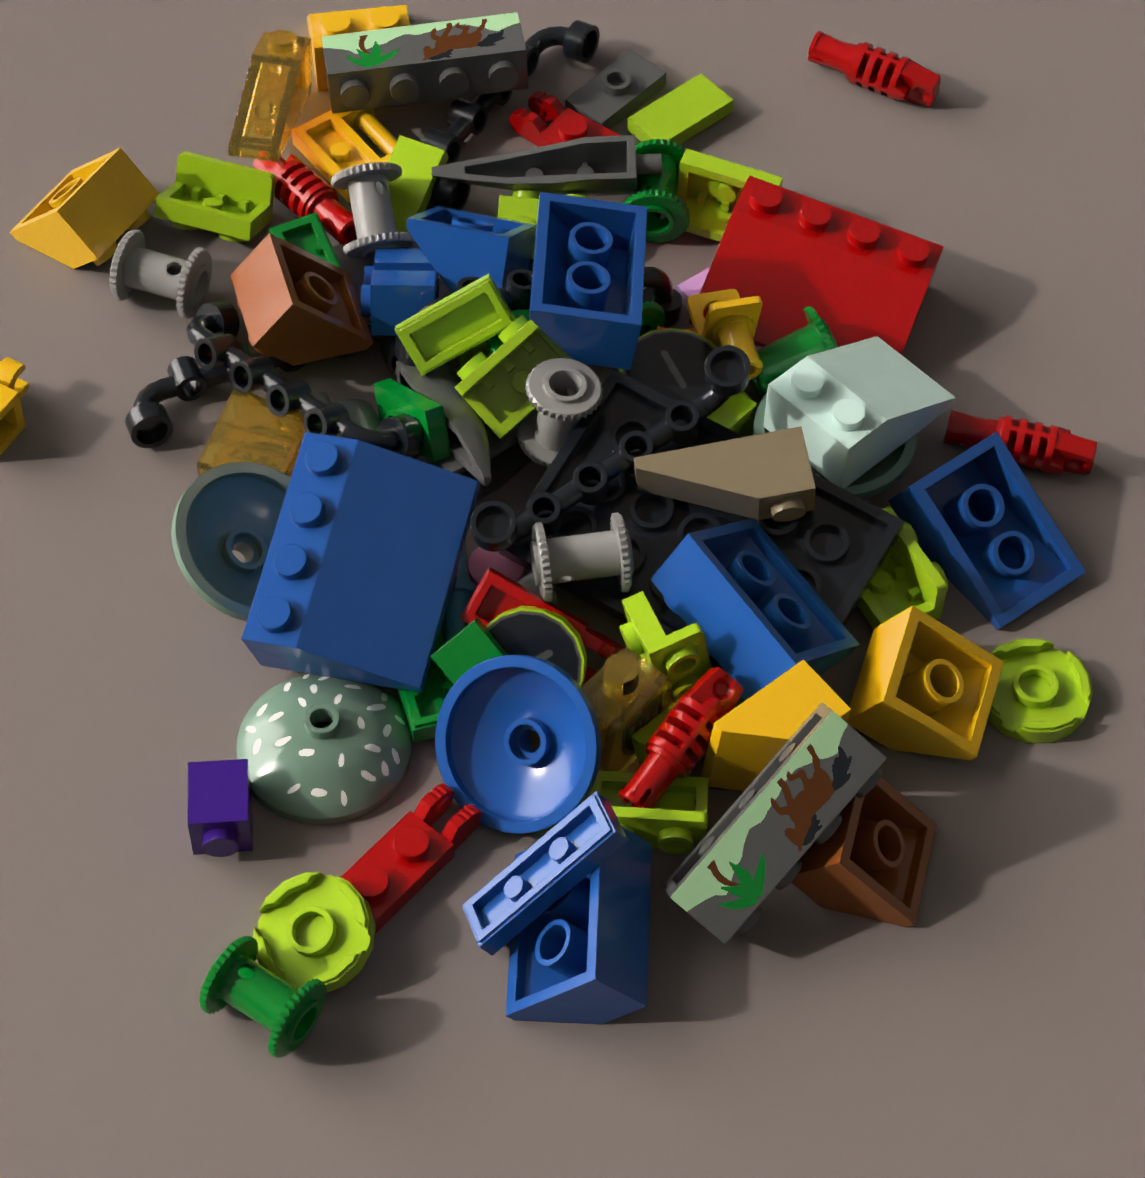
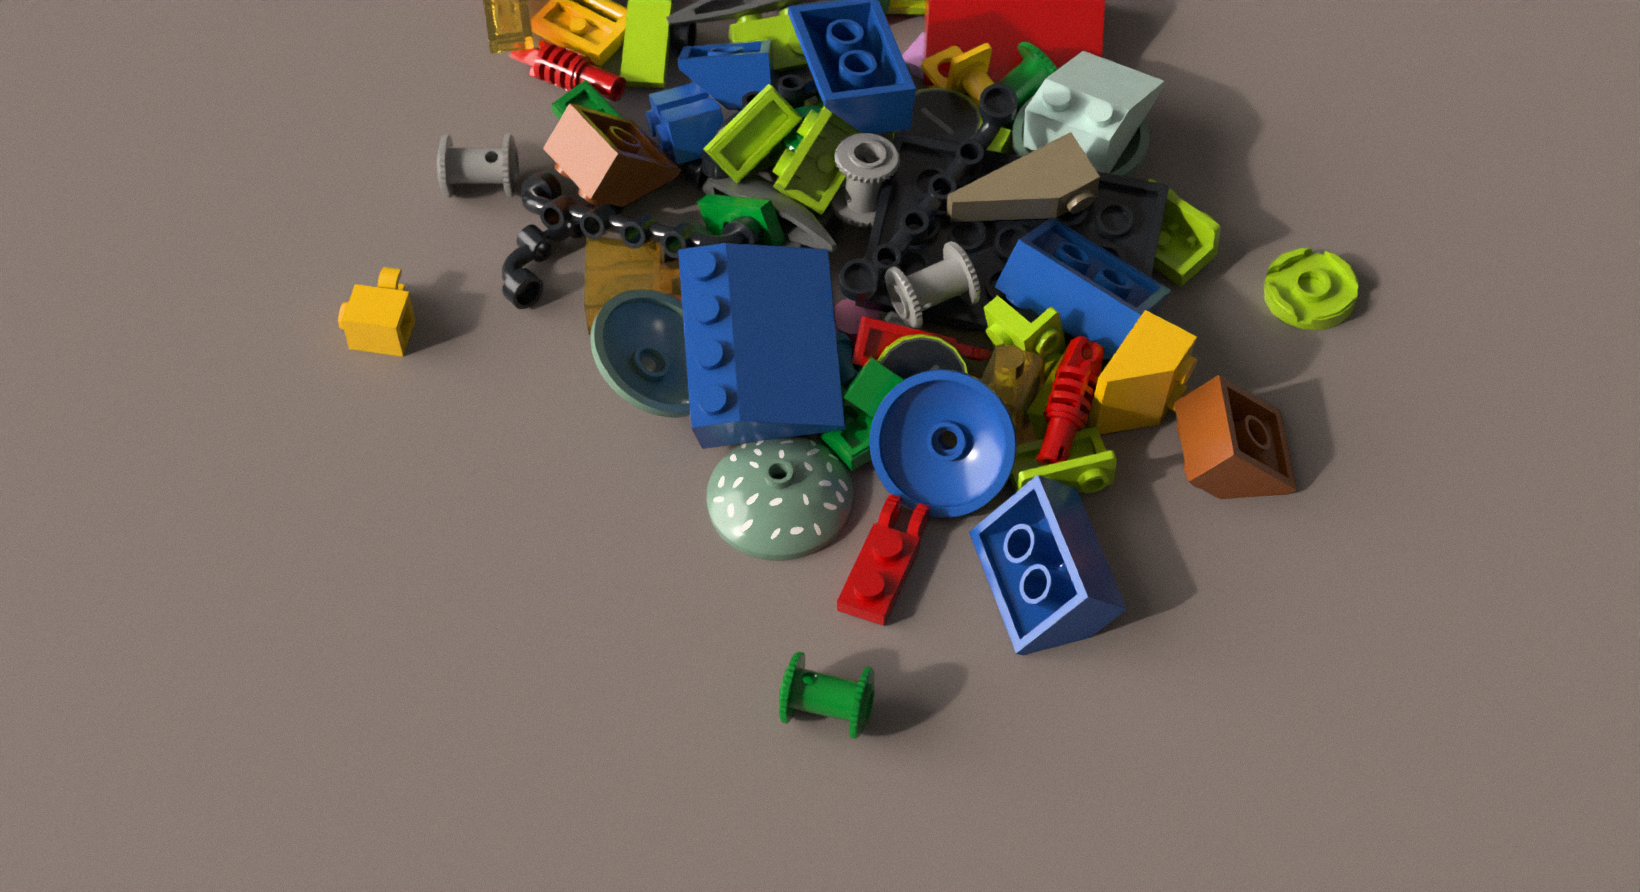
camera: 15 degrees left, 0 degrees up
(89, 211) = (390, 132): yellow slope -> none
(218, 197) = (494, 91): lime bracket -> none
(220, 807) = (723, 565): dark purple brick -> none
(315, 930) = (843, 632): lime tile -> none
(371, 208) = (631, 64): light grey hose -> none
(544, 873) = (1008, 533): blue tile -> none
(774, 824) = (1173, 439): brick -> none
(924, 688) = (1232, 308): yellow slope -> none
(989, 532) = (1229, 176): blue slope -> none
(1030, 444) = (1223, 103): red hinge -> none

